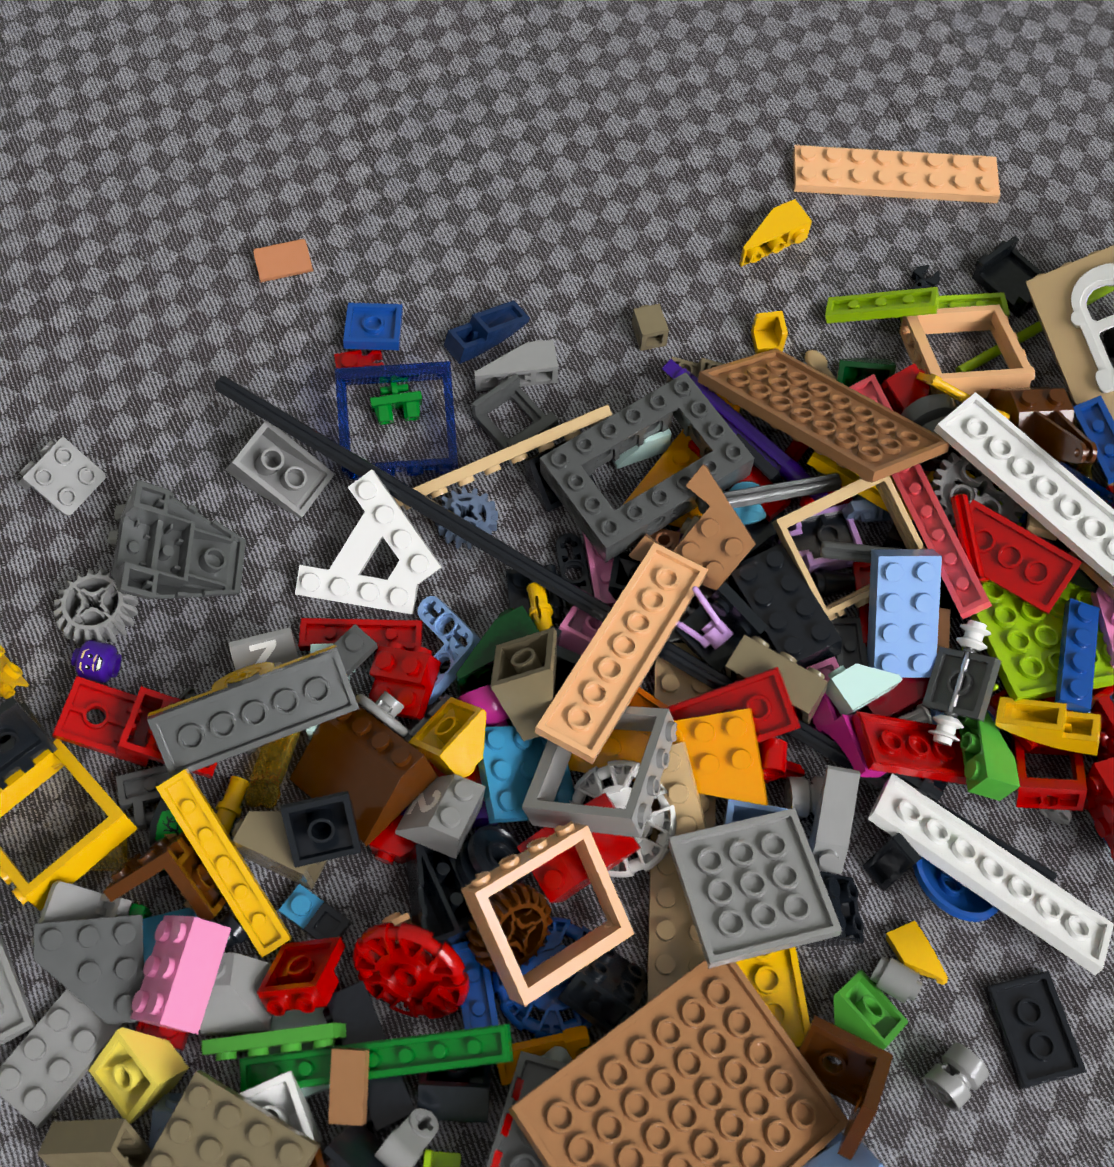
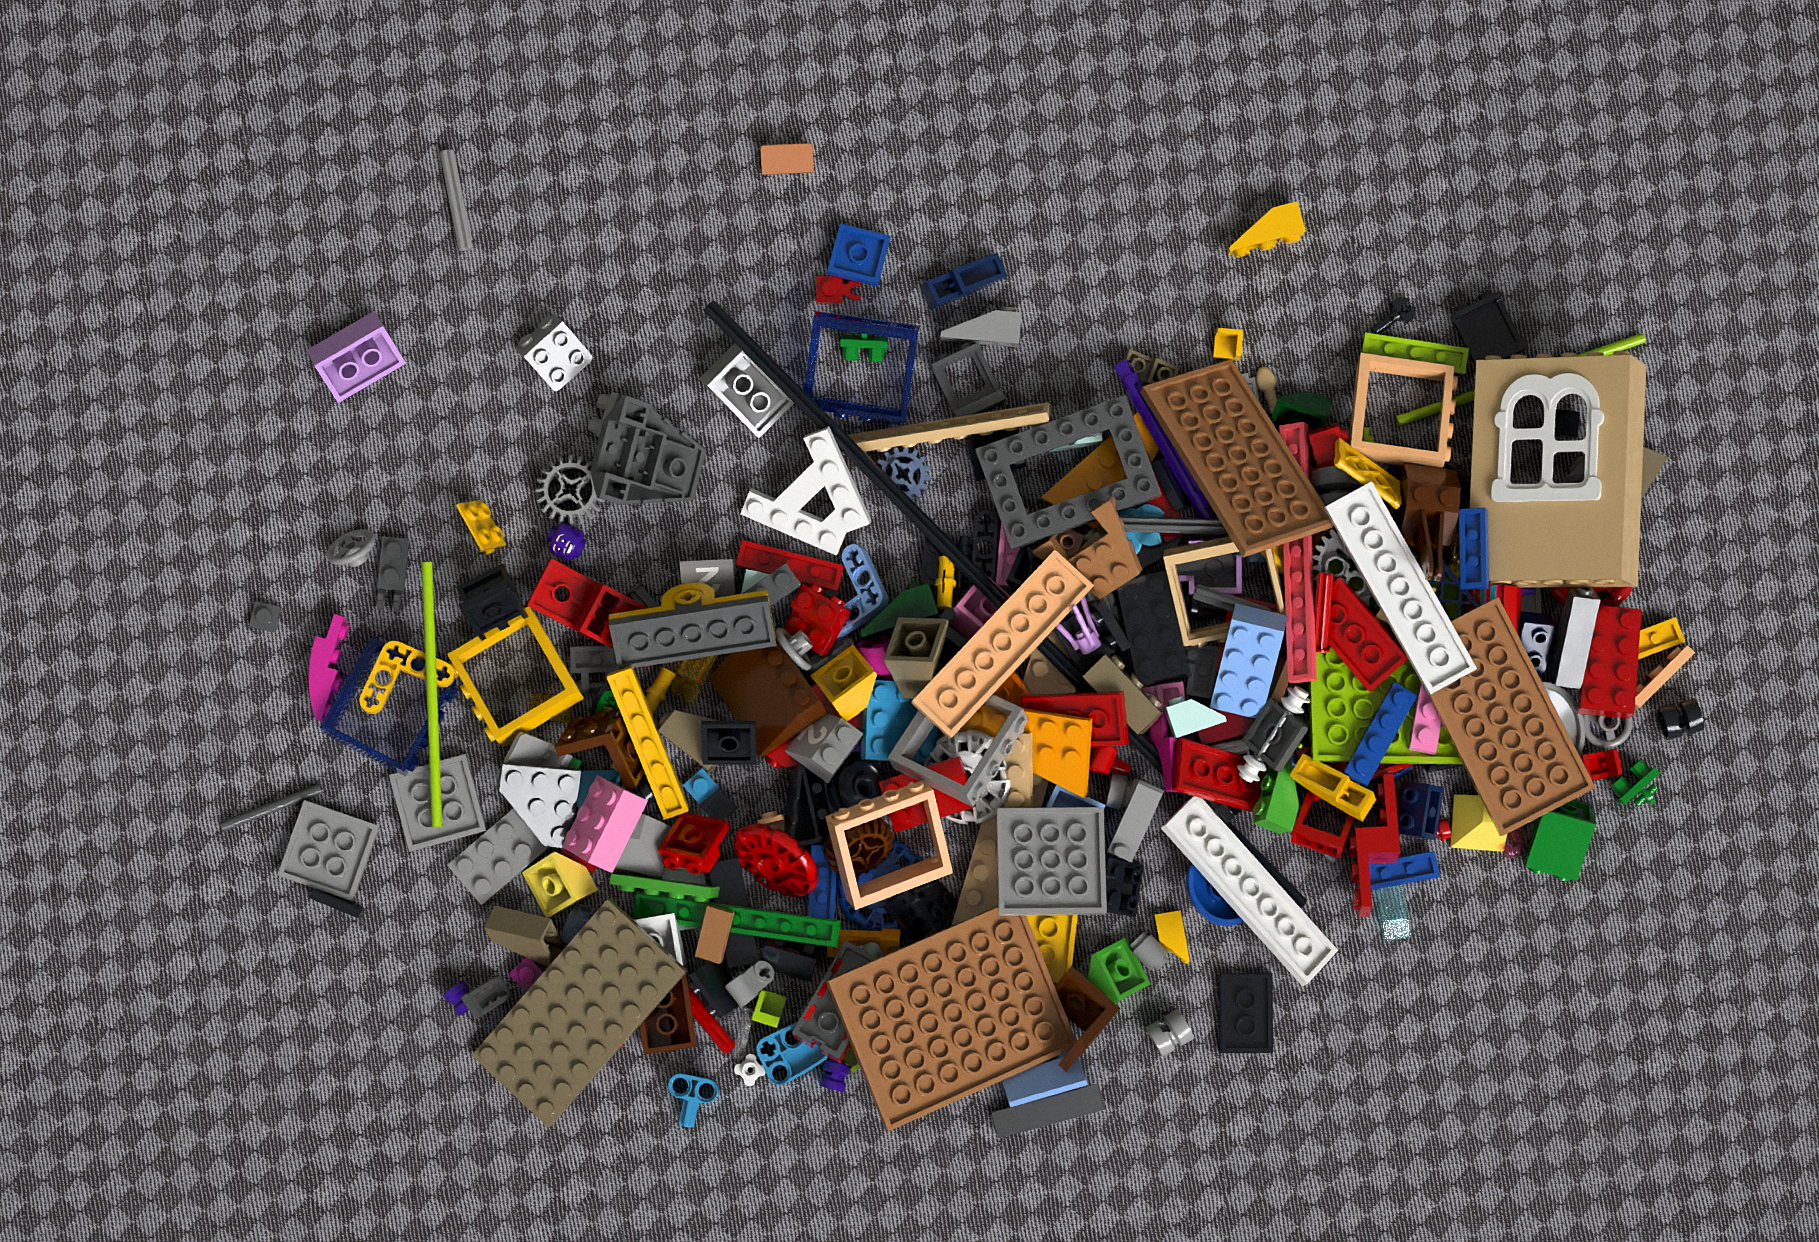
camera: 15 degrees right, 20 degrees up
(649, 327) = (1117, 311): dark tan brick -> none
(882, 305) = (1340, 343): lime plate -> none
(891, 861) = (1173, 863): black tile -> none
(895, 174) = (1415, 180): light nougat plate -> none

